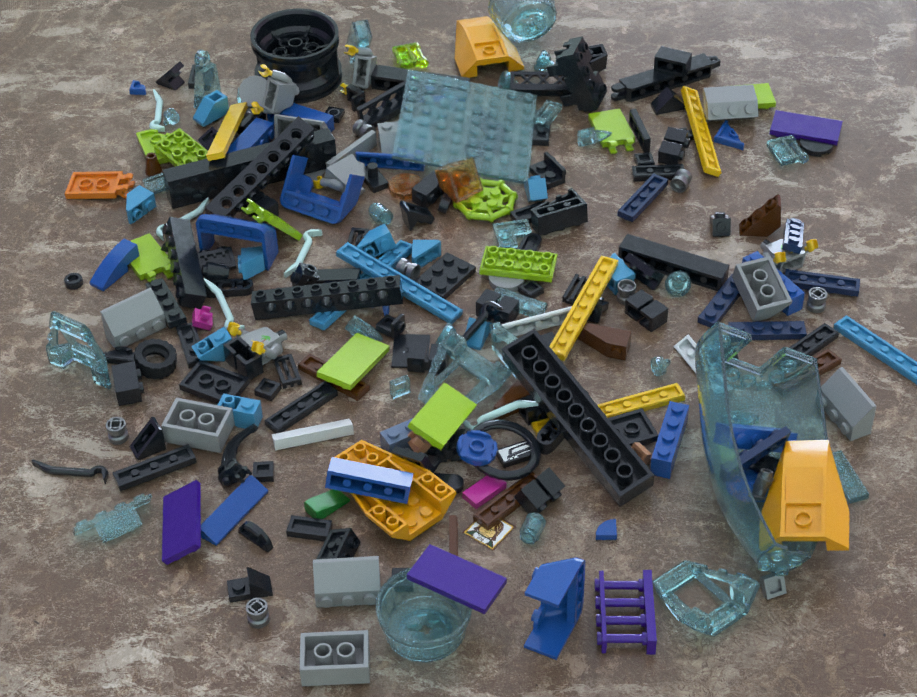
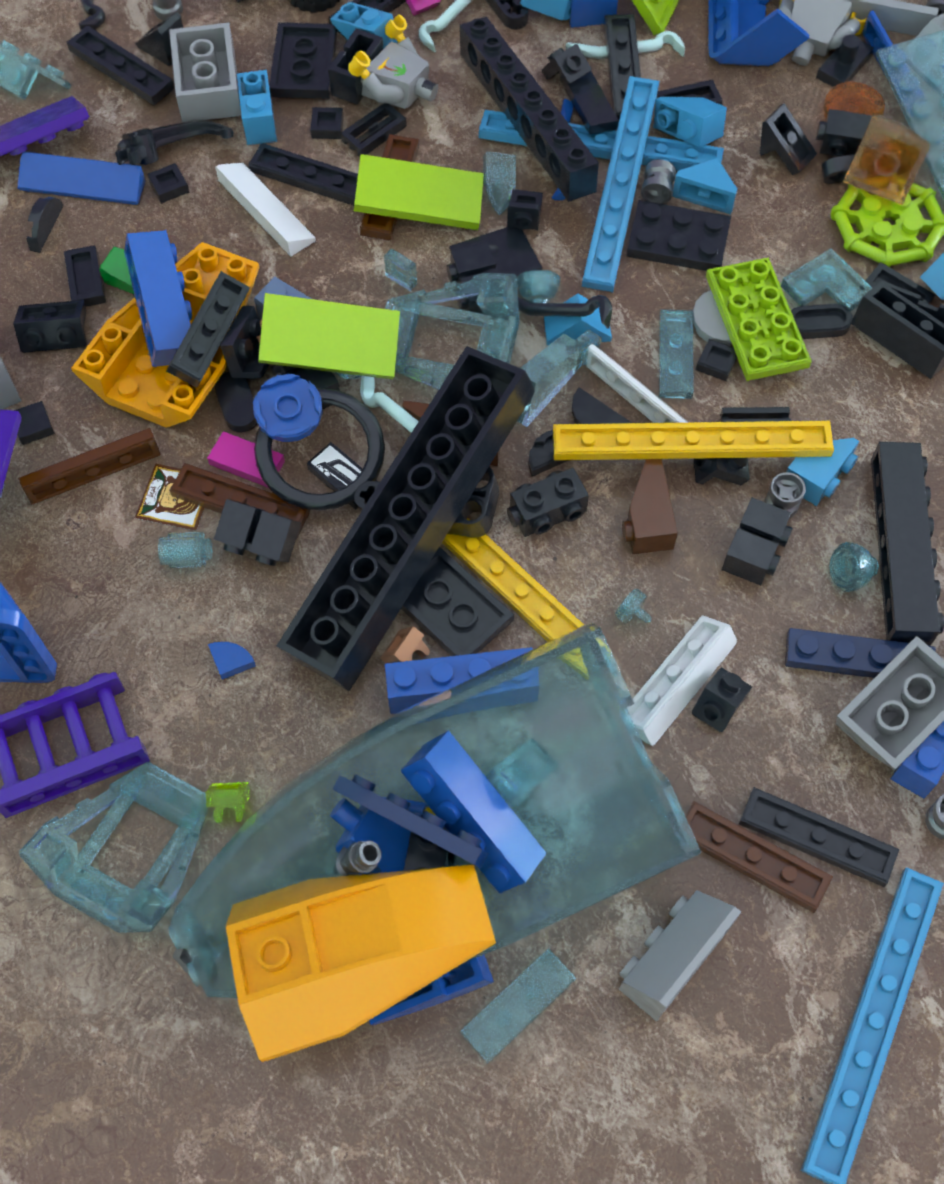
camera: 65 degrees right, 20 degrees up
(314, 254) = (621, 55): none -> black tile
(380, 214) = (763, 100): clear light blue brick -> none
(405, 464) = (208, 329): none -> black tile
(509, 305) = (640, 329): black piece -> none
(584, 370) = (548, 502): none -> black brick
(644, 271) = (849, 501): black bracket -> none
(691, 550) = (228, 795): none -> clear neon green tile
(773, 329) = (825, 755): dark blue plate -> none

